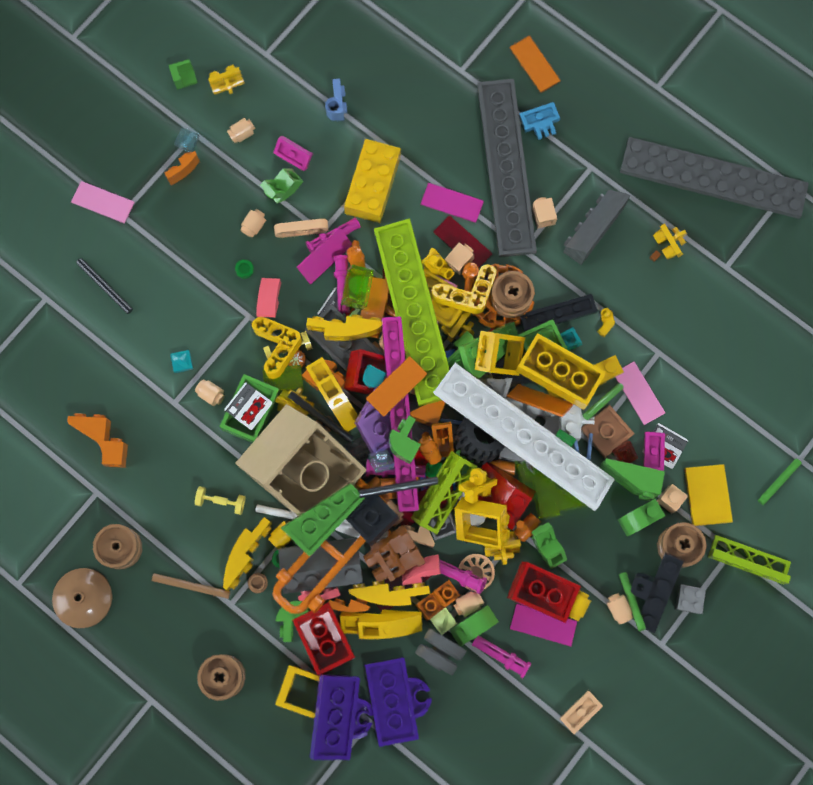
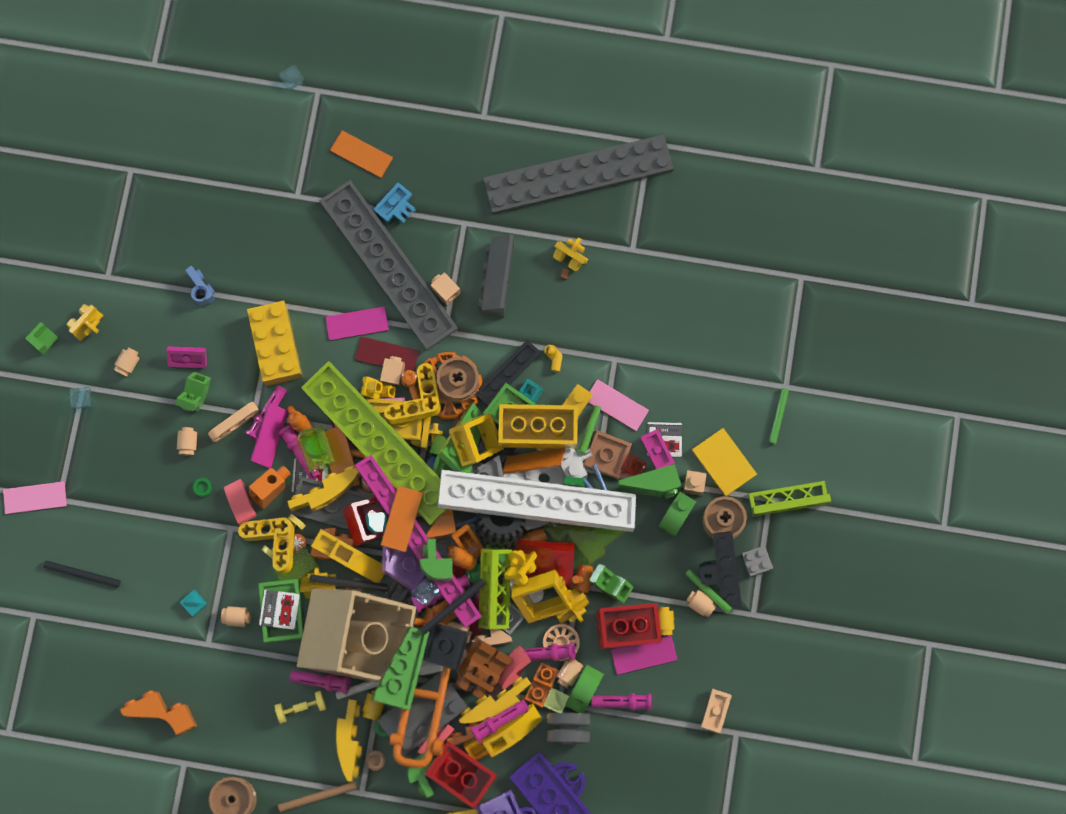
camera: 30 degrees left, 0 degrees up
(188, 163) = (94, 418): orange slope -> none
(255, 493) = (328, 682): none -> dark pink pin
(299, 297) = (264, 492): none -> orange torso
(376, 610) = (491, 725): none -> dark pink pin

